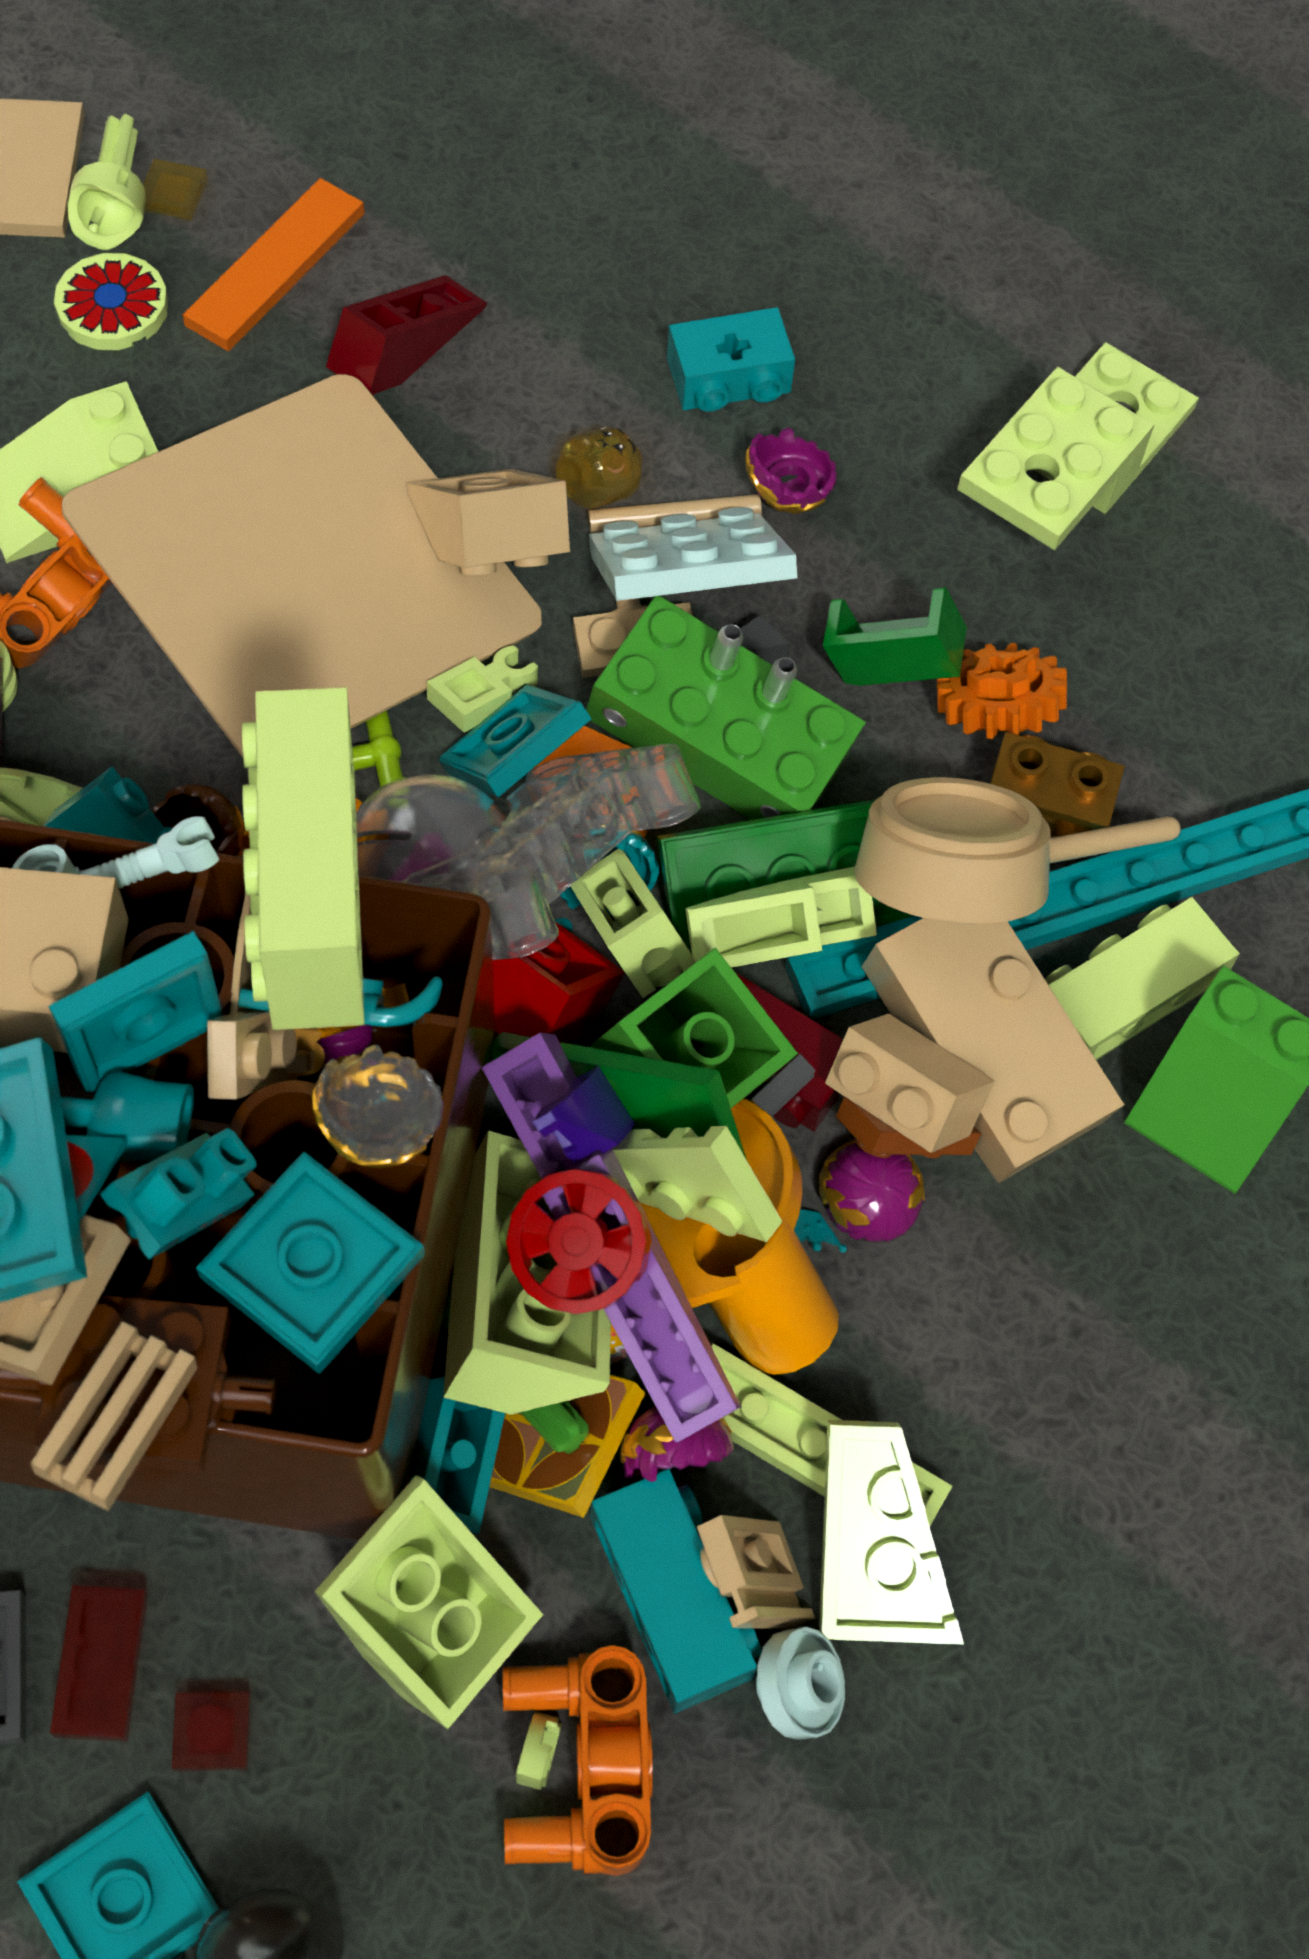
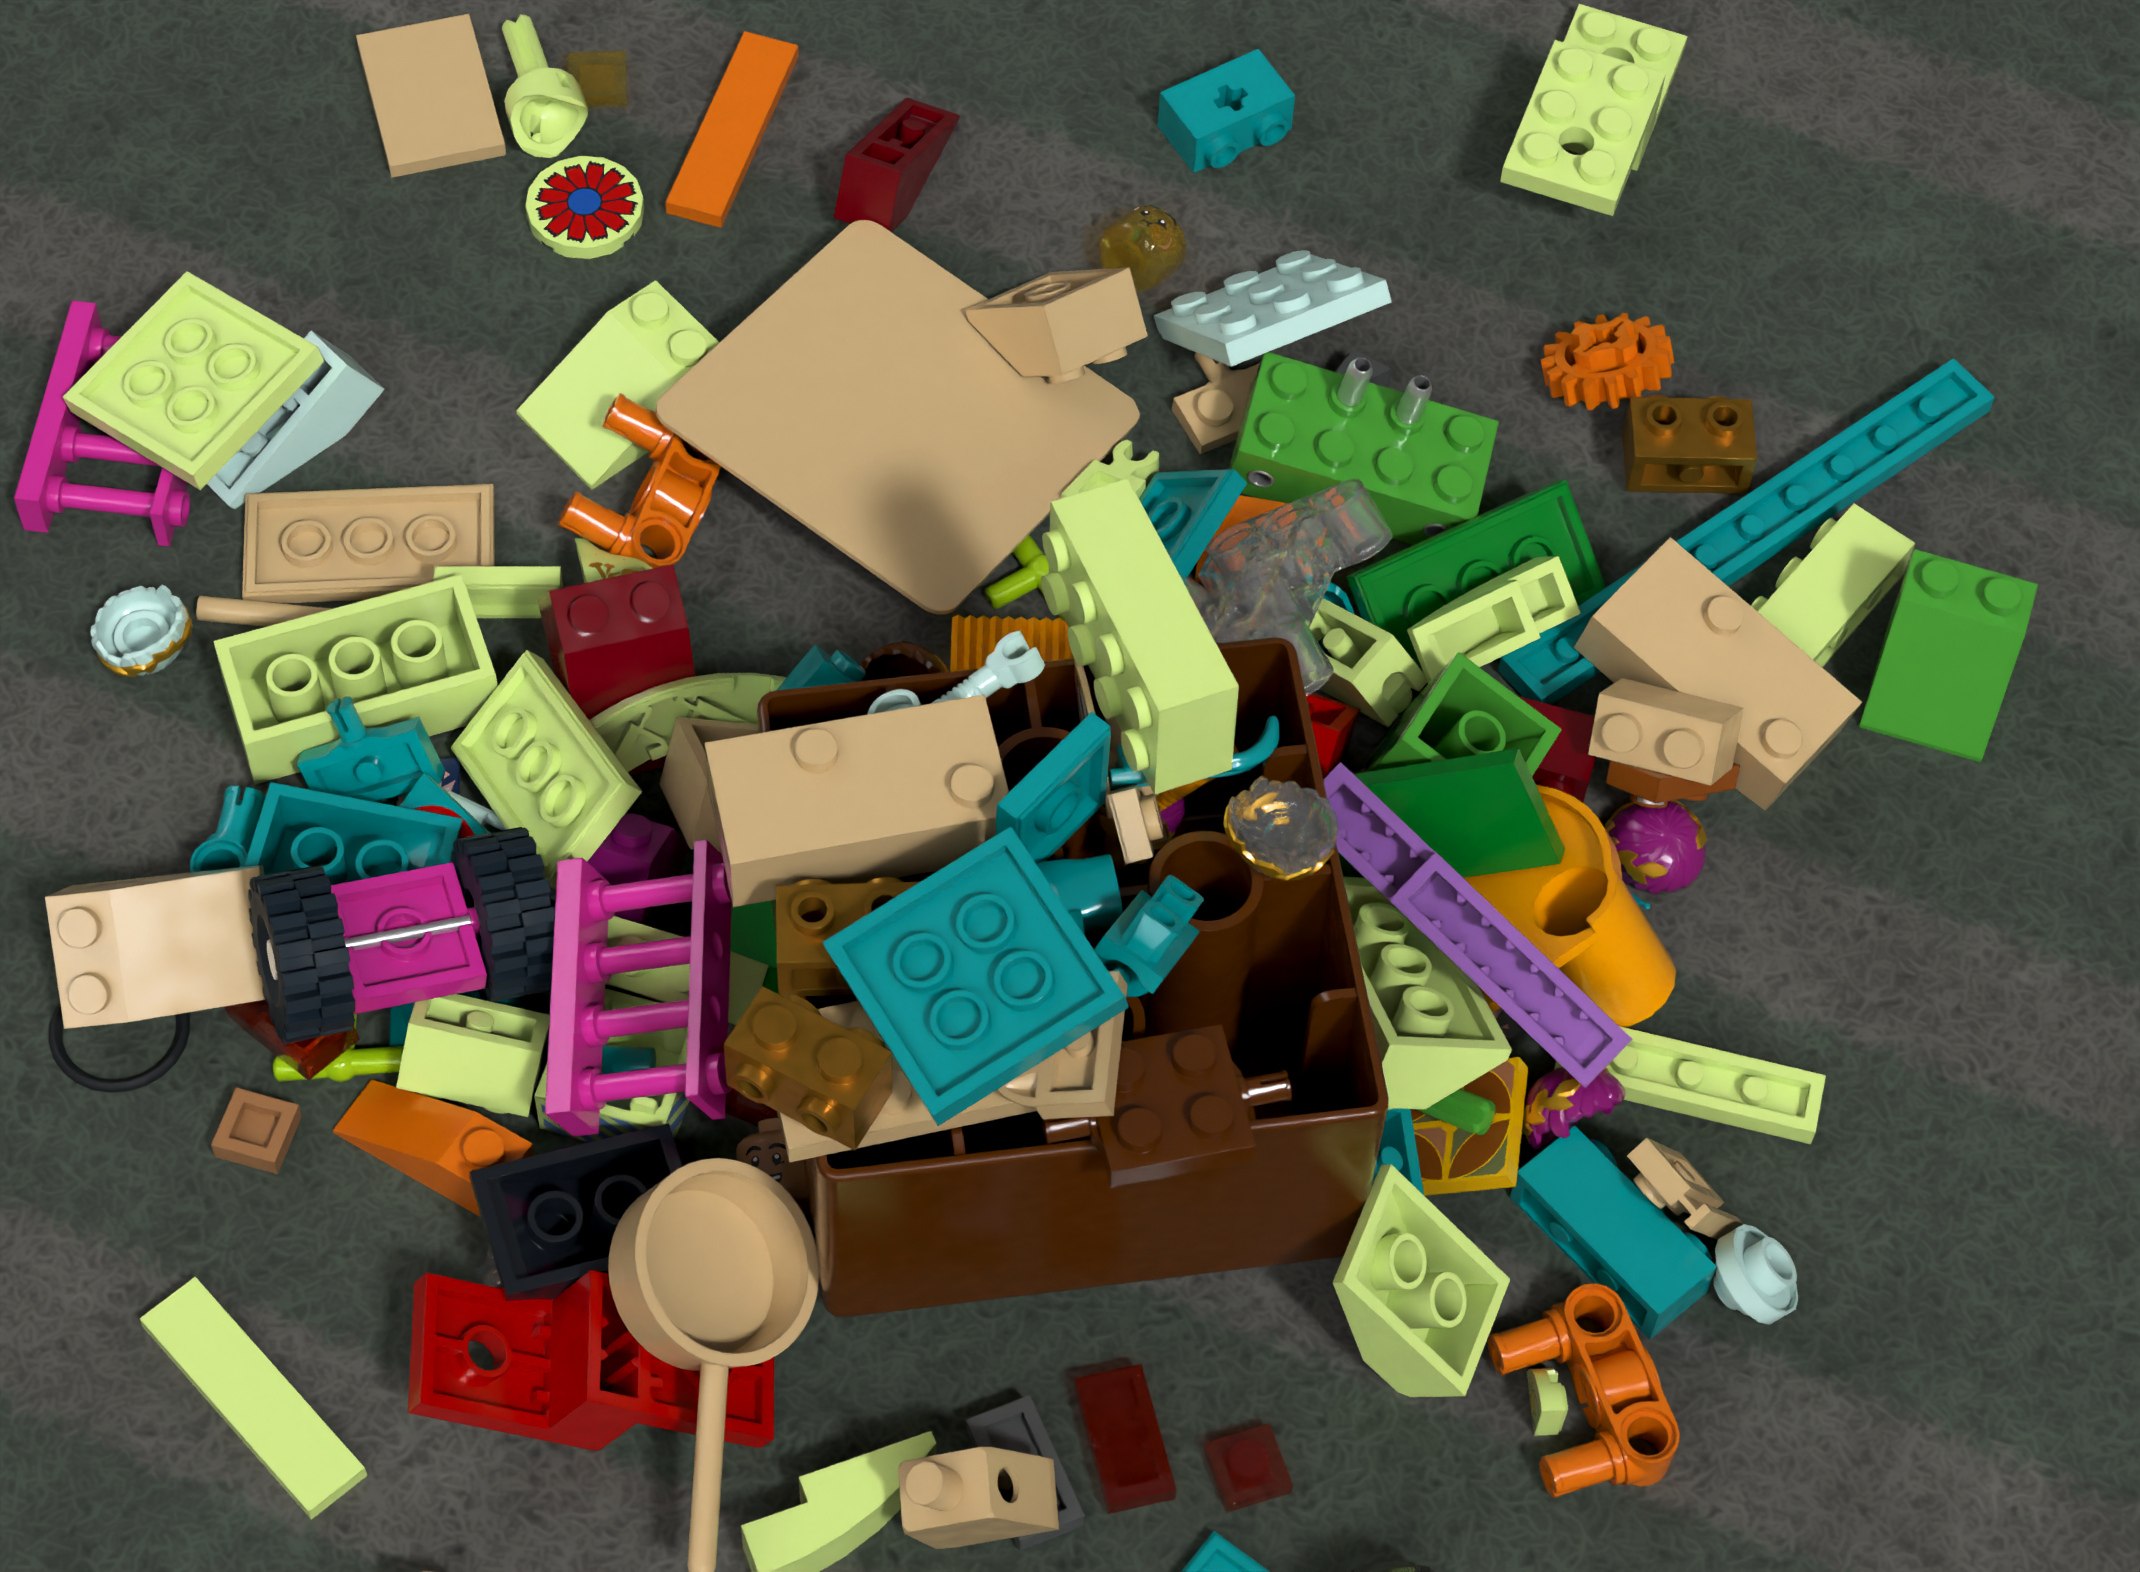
camera: 15 degrees left, 5 degrees down
(54, 1451) = (1186, 1073): tan tile -> none
(311, 1262) = (1271, 972): teal tile -> none
(578, 1242) = (1443, 932): red piece -> none
(586, 1117) = (1409, 825): dark purple slope -> none
(652, 514) = (1213, 279): tan bar -> none
(698, 1180) = (1526, 851): yellowish green wing -> none
(775, 457) = (1318, 190): magenta hair -> none
(782, 1085) = (1558, 760): dark grey tile -> none
(877, 1545) = (1779, 1140): wing -> none
(896, 648) = (1496, 346): green panel -> none
(974, 850) = (1652, 506): tan piece -> none

